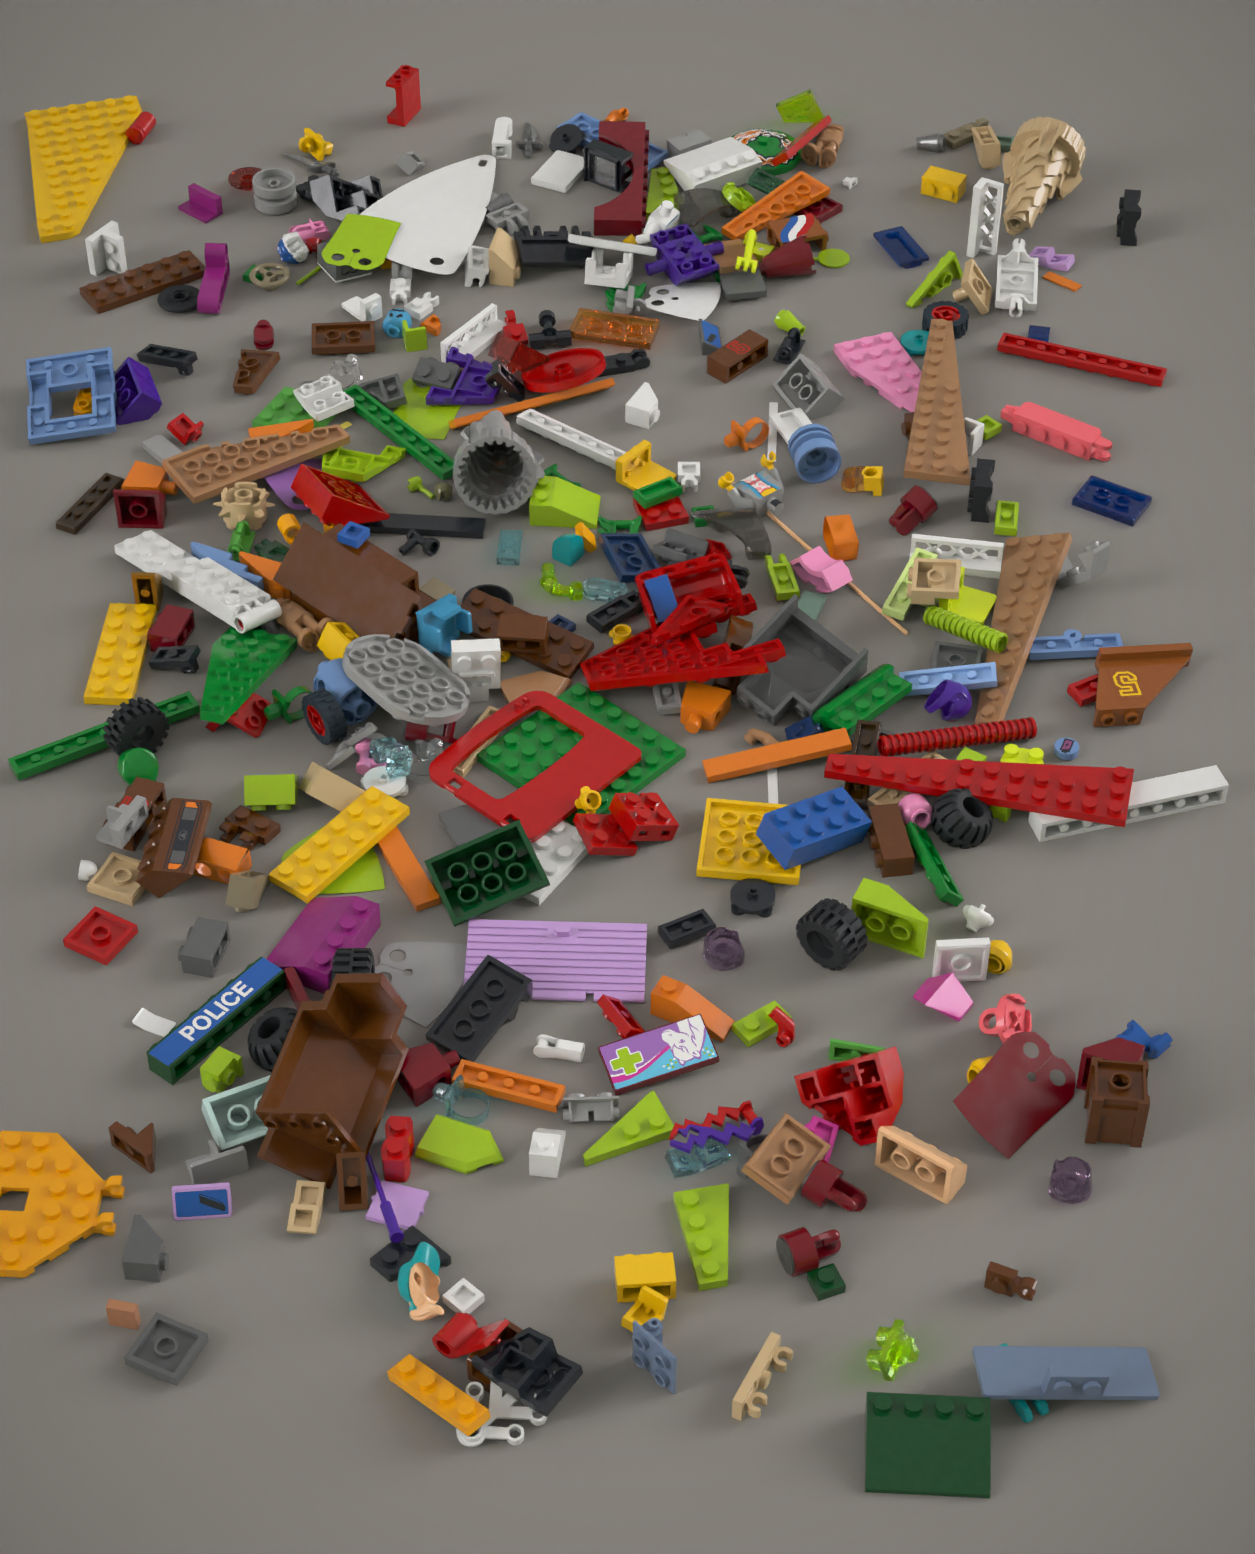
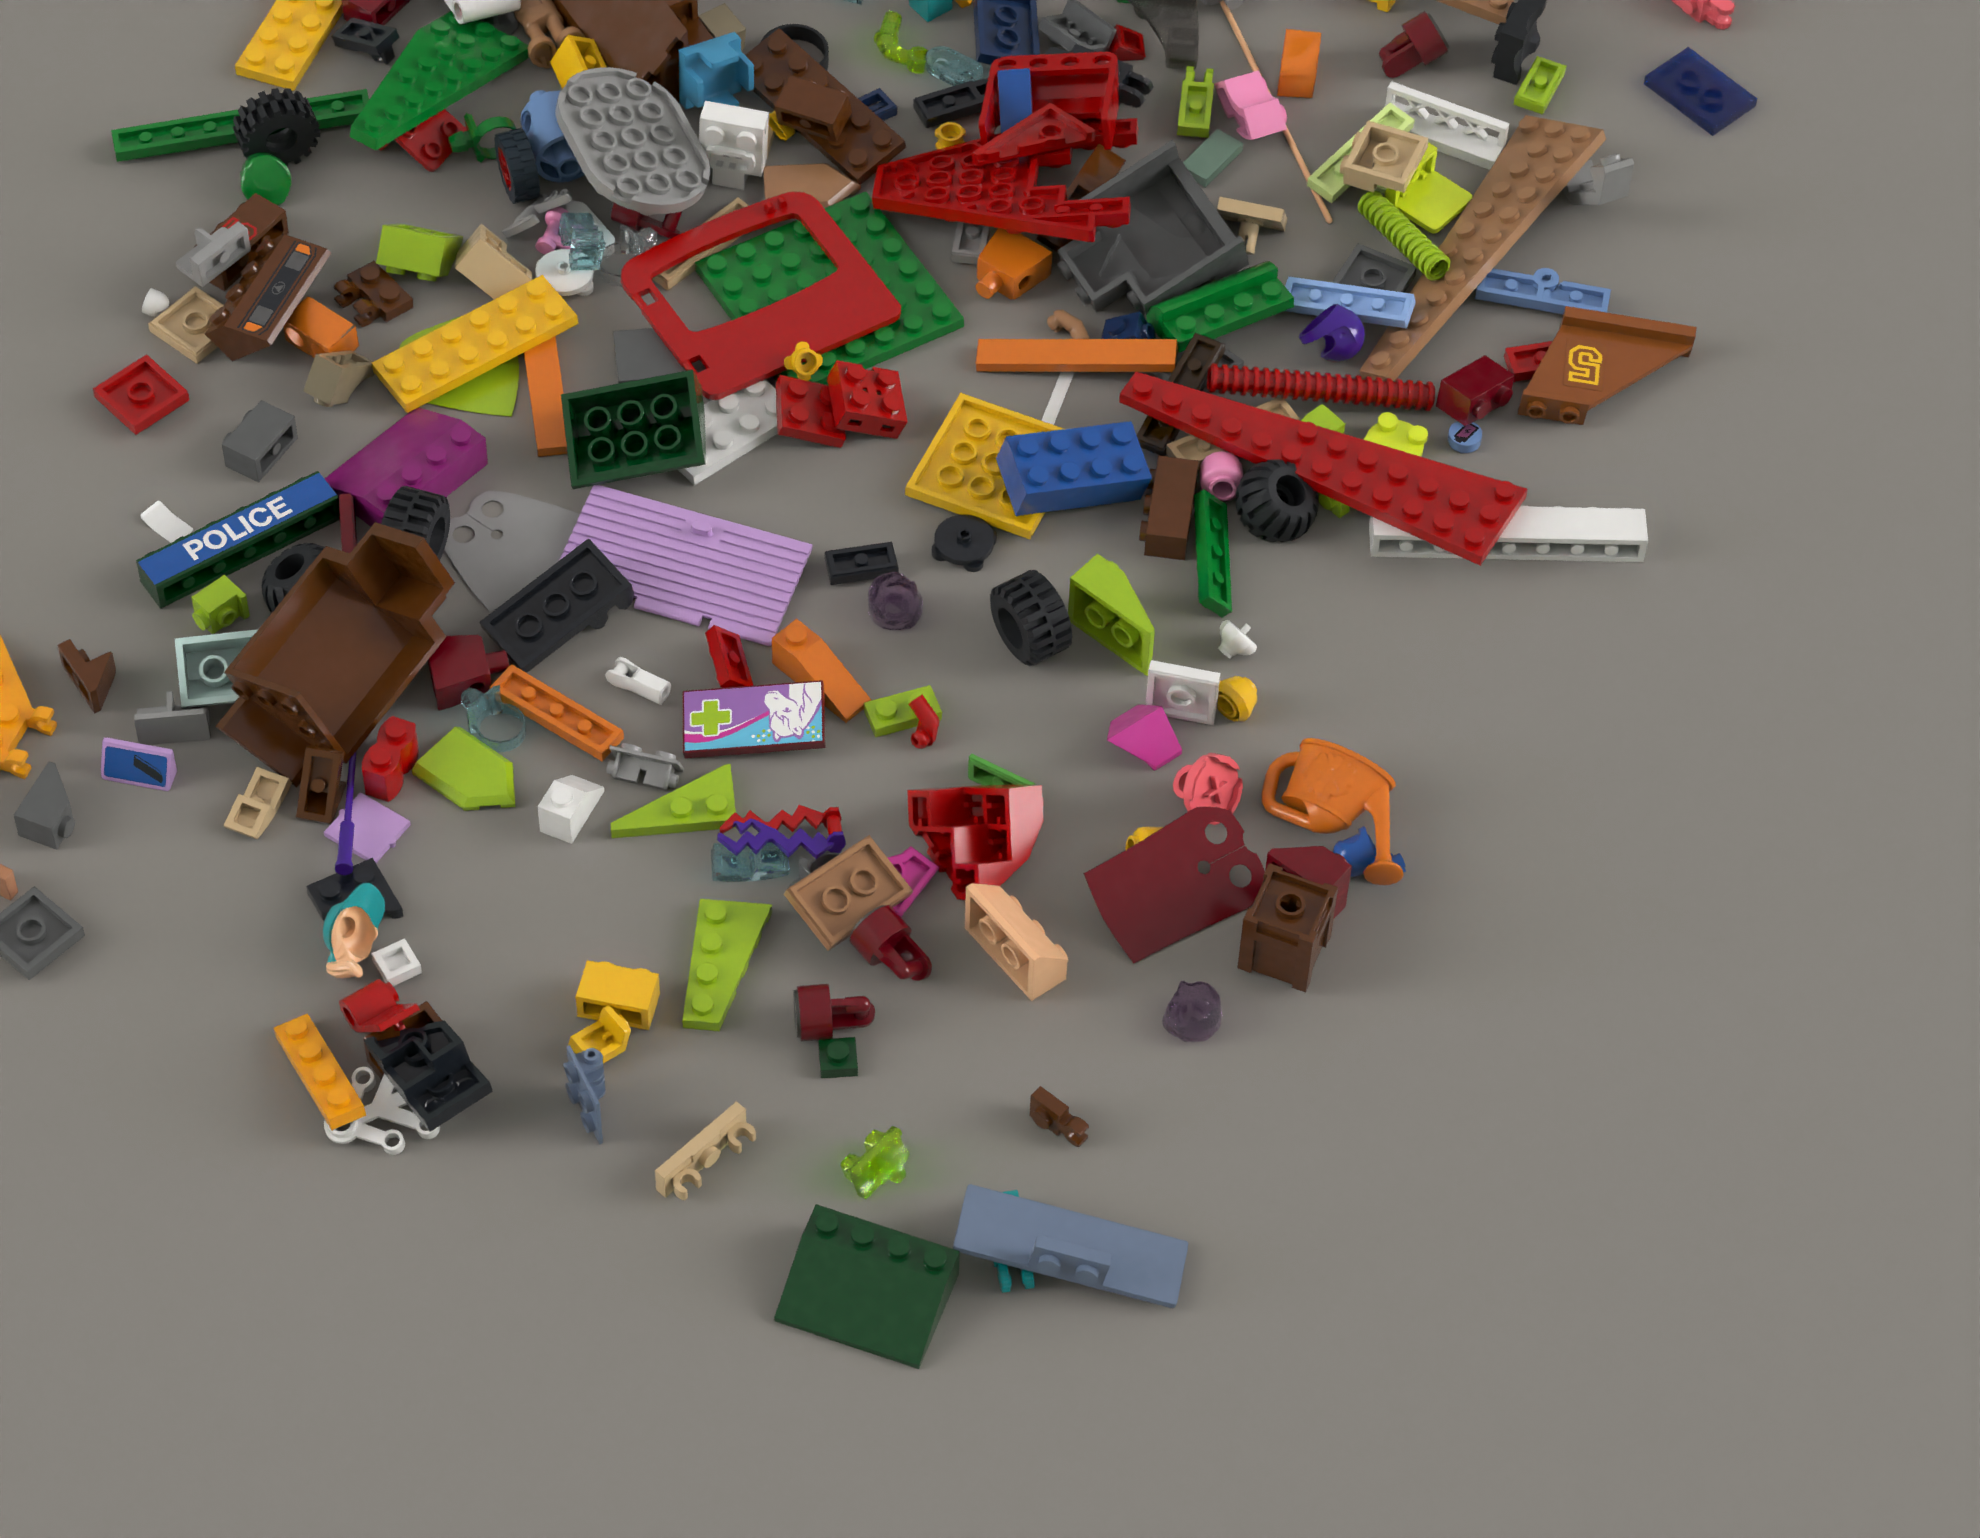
camera: 15 degrees right, 10 degrees up
(860, 637) = (1251, 218): none -> tan tile
(1062, 716) = (1475, 390): none -> dark red brick
(1095, 1003) = (1332, 790): none -> orange piece

